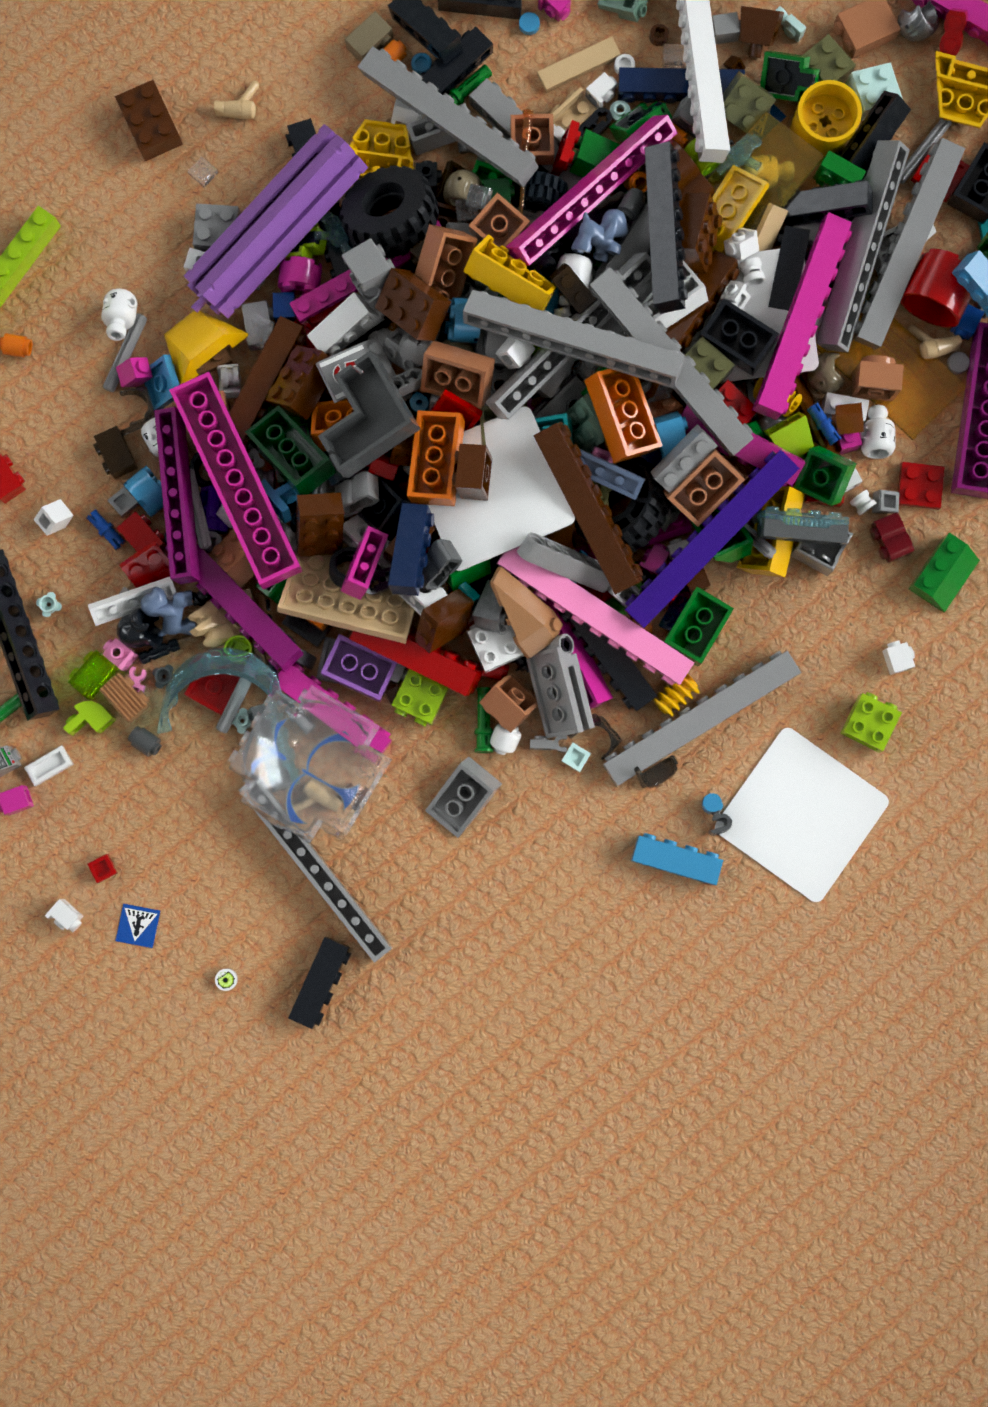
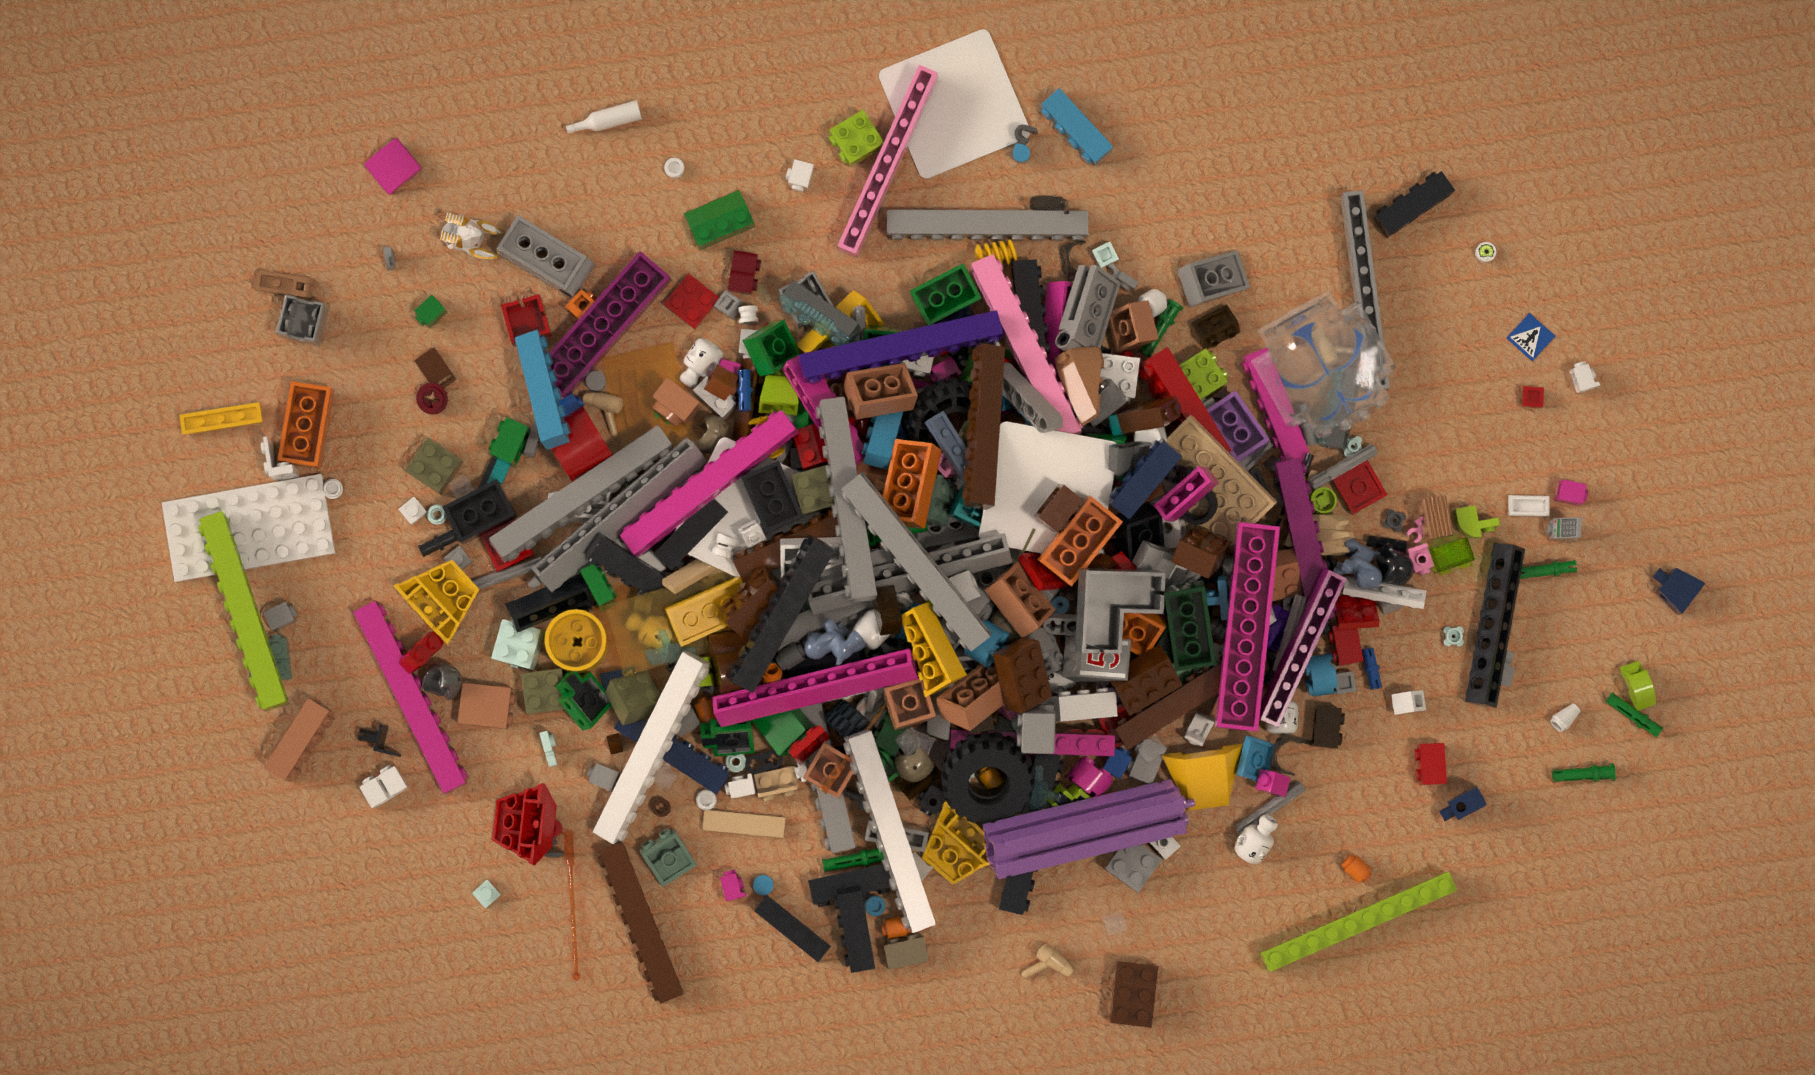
camera: 150 degrees left, 0 degrees up
(144, 741) = (1440, 476): dark grey brick -> none
(211, 662) = (1349, 497): clear light blue windscreen -> none
(230, 376) = (1197, 728): light grey wheel -> none
(433, 753) = (1216, 327): none -> dark brown bracket
(683, 458) = (884, 418): light grey brick -> none
(742, 244) = (719, 572): white brick -> none
(759, 28) = (578, 757): reddish brown torso -> none
(829, 718) = (888, 161): none -> bright pink brick
(973, 137) = (459, 557): none -> light grey plate

